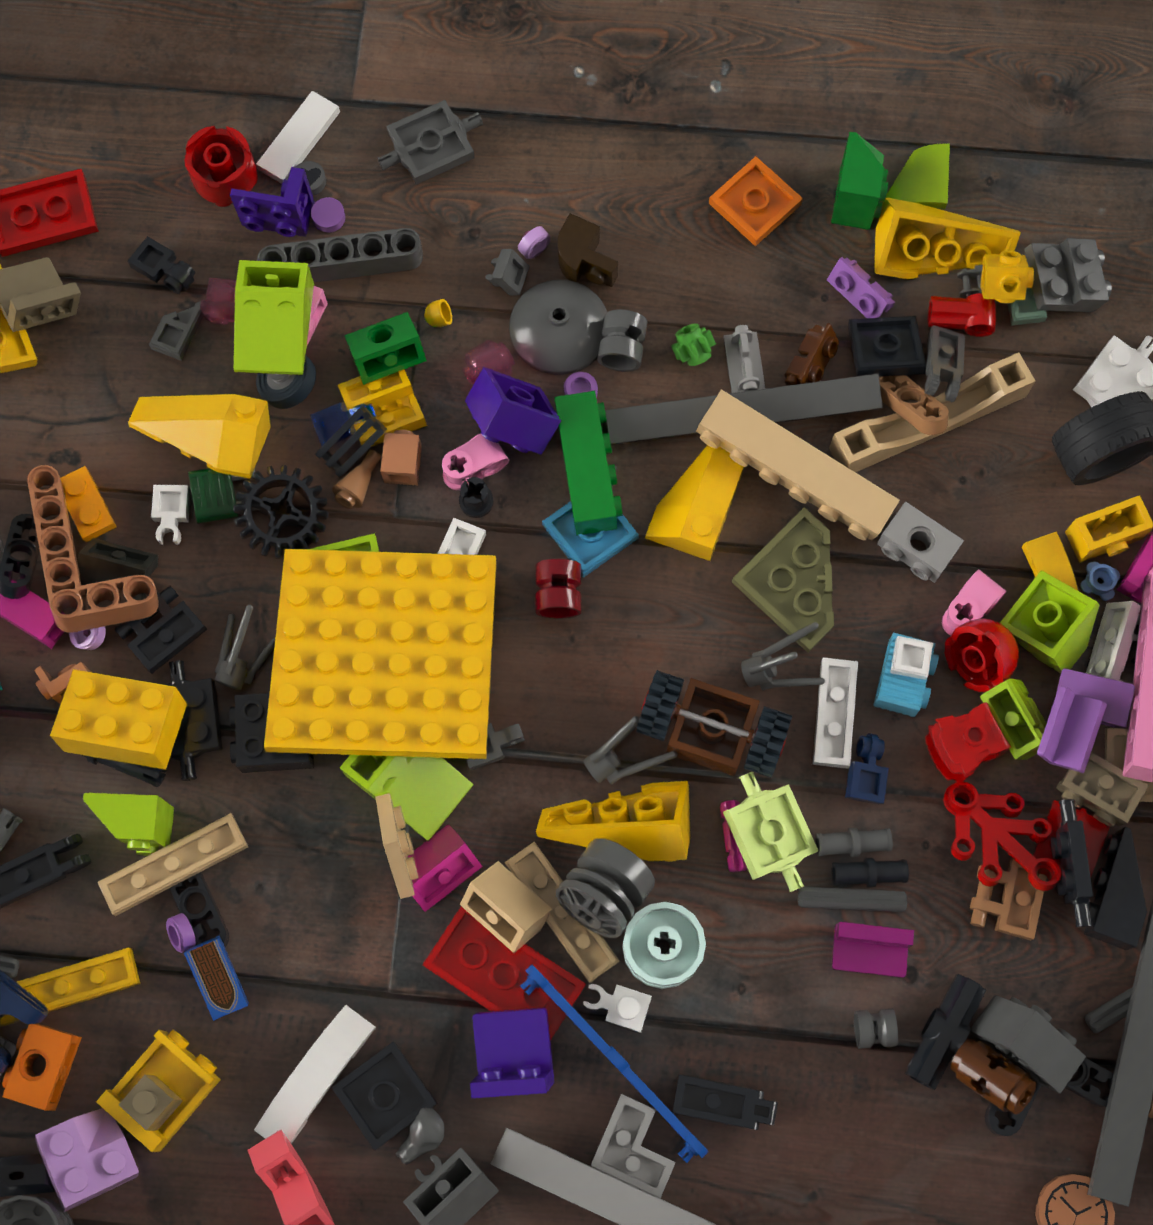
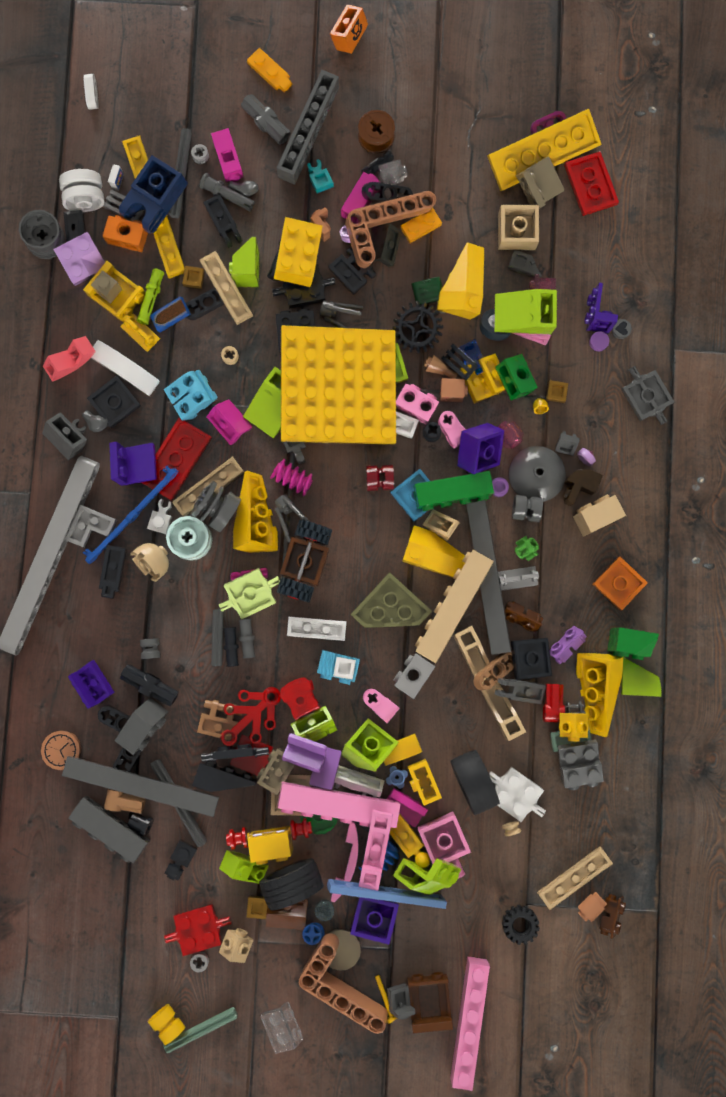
camera: 85 degrees right, 10 degrees up
(110, 332) = (518, 227): none -> tan brick
(144, 930) = (193, 277): none -> pearl gold plate
(157, 260) = (564, 249): black plate -> none
(162, 1013) = (152, 289): none -> lime pin
(169, 507) = (420, 269): white plate -> none
(180, 932) = (192, 294): medium lavender tile -> none
(220, 162) = (614, 280): red brick -> none
(246, 1041) = (140, 333): none -> yellow hinge
(298, 137) = (647, 321): white tile -> none
(317, 866) = (227, 360): none -> tan bush
(356, 248) = (574, 341): dark grey beam -> none
(376, 919) = (191, 394): none -> medium azure hips
(397, 845) = (234, 397): tan plate -> none
(414, 285) = (557, 391): none -> pearl gold plate
(430, 523) = (413, 408): none -> bright pink brick
(505, 906) = (207, 456): tan brick -> none
(549, 746) = (291, 476): none -> dark pink piece
(640, 222) = (602, 513): none -> tan brick
(648, 484) = (441, 524): none -> tan slope
(704, 1020) = (151, 560): none -> tan cylinder
(762, 667) = (339, 589): dark grey plant -> none
(866, 780) = (280, 645): dark blue plate -> none
(871, 949) = (191, 647): magenta panel -> none
(947, 1147) = (91, 684): none -> dark purple bracket
(982, 653) = (350, 708): red cylinder -> none
(1008, 1087) = (123, 707): reddish brown piece -> none

